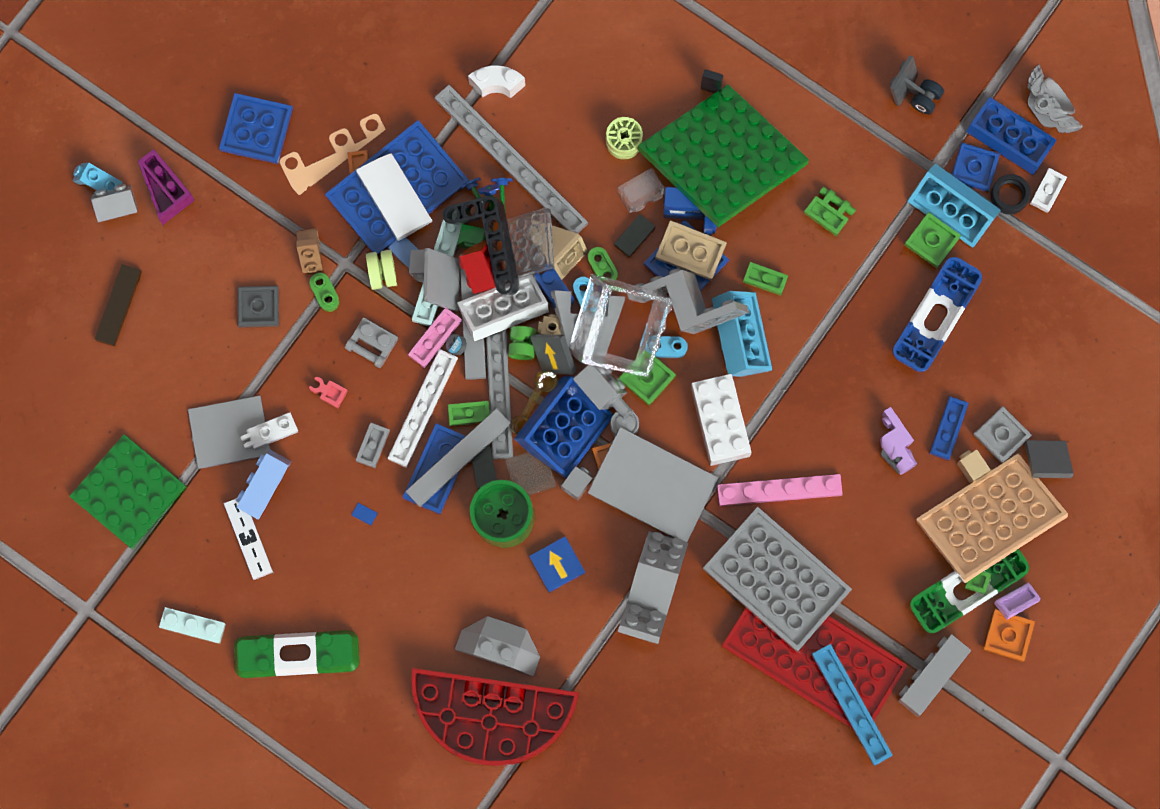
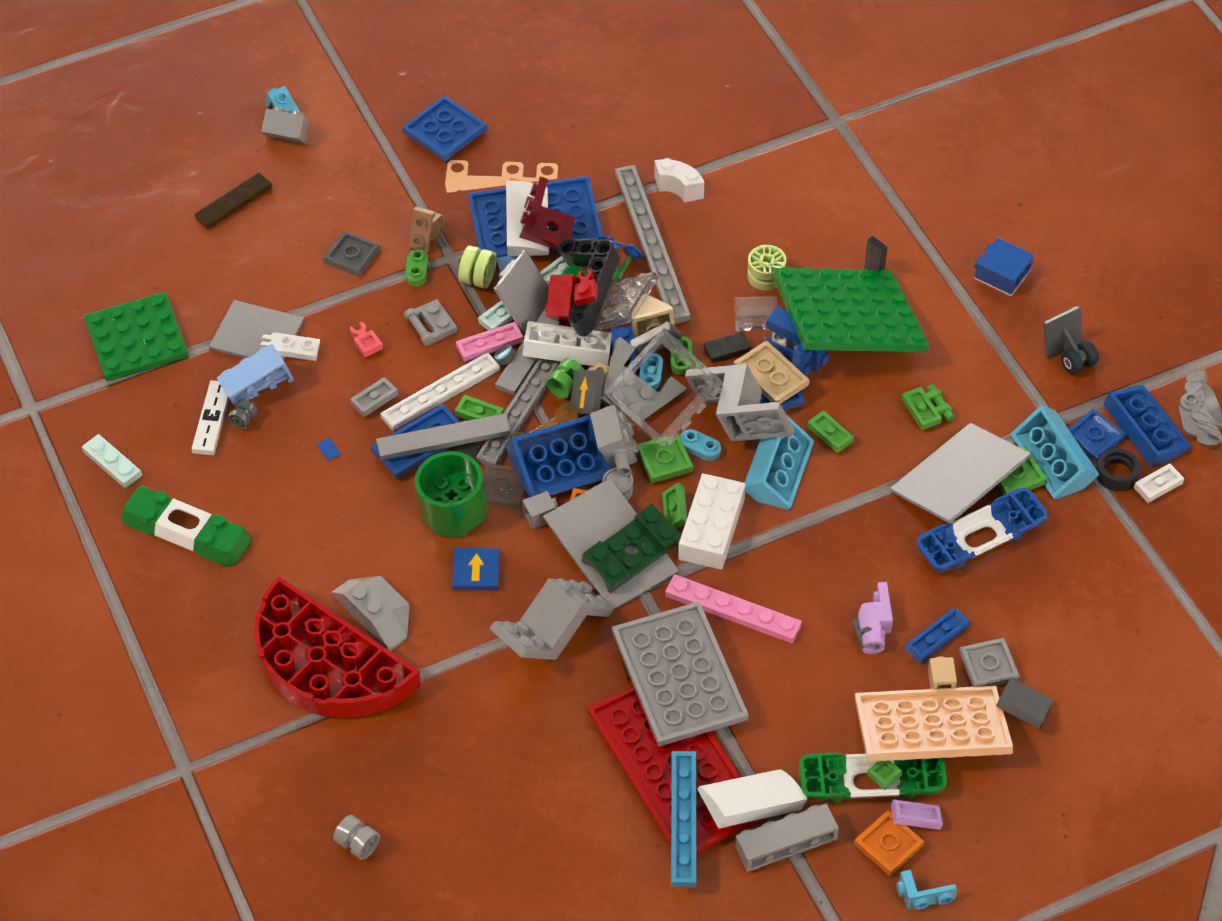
camera: 30 degrees right, 25 degrees down
(164, 187) = (334, 132): magenta wedge -> none
(274, 523) = (244, 411): none -> dark grey wheel
(406, 195) = (539, 217): none -> dark red bracket
(499, 256) = (586, 290): none -> red plate
(580, 269) = (643, 340): none -> tile
(683, 421) = (675, 505): none -> bright green plate
(684, 464) = (648, 533): none -> dark green piece
(818, 32) = (1003, 266): none -> blue piece
(890, 265) = (960, 472): none -> piece
(891, 657) = (752, 798): none -> white slope
(1043, 668) = (919, 900): none -> medium azure bracket

